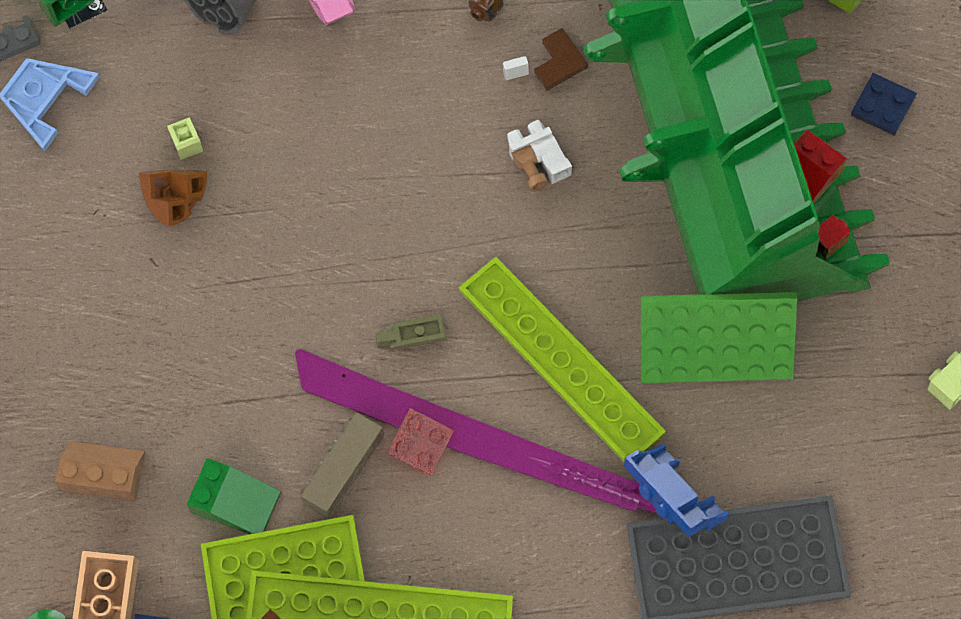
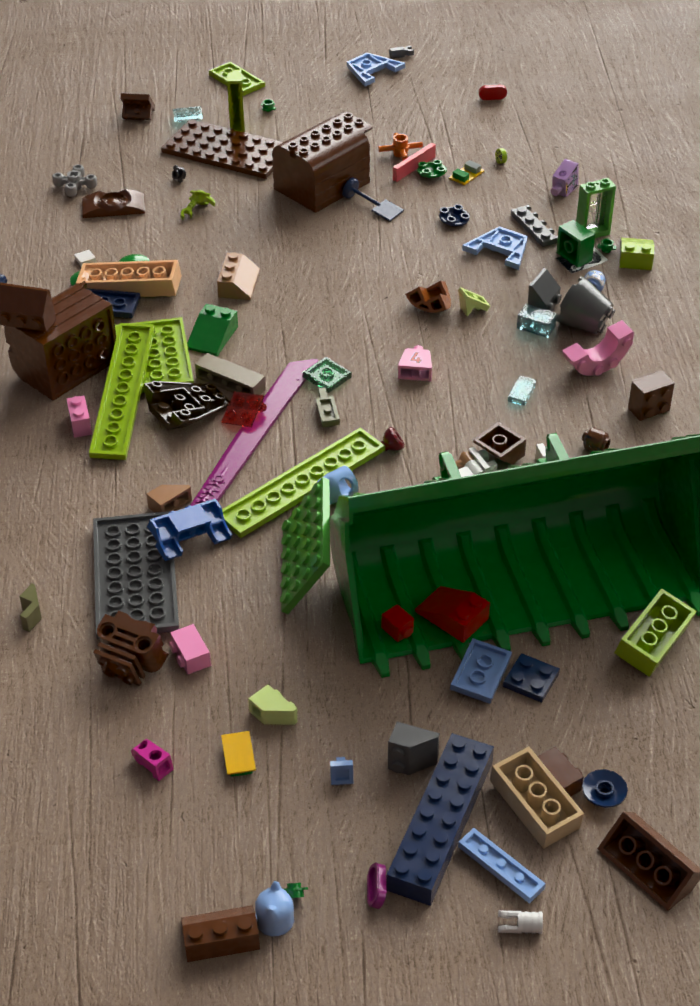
camera: 85 degrees right, 25 degrees down
(181, 45) = (544, 291): none -> dark grey slope
(229, 58) = (536, 320): none -> clear light blue brick
(321, 216) = (415, 364): none -> bright pink torso
(335, 335) = (327, 374): none -> clear green tile
(375, 86) = (522, 390): none -> clear light blue tile
(405, 521) = (183, 403): none -> dark brown wedge
(484, 247) = (392, 440): none -> dark red brick
(503, 112) = (502, 443): none -> reddish brown slope
(578, 311) = (338, 484): none -> light blue piece
(602, 532) = (168, 497): none -> medium nougat slope
(868, 480) = (190, 649): none -> bright pink brick
(883, 153) = (481, 671): none -> medium blue plate
(890, 543) = (128, 648): none -> reddish brown piece

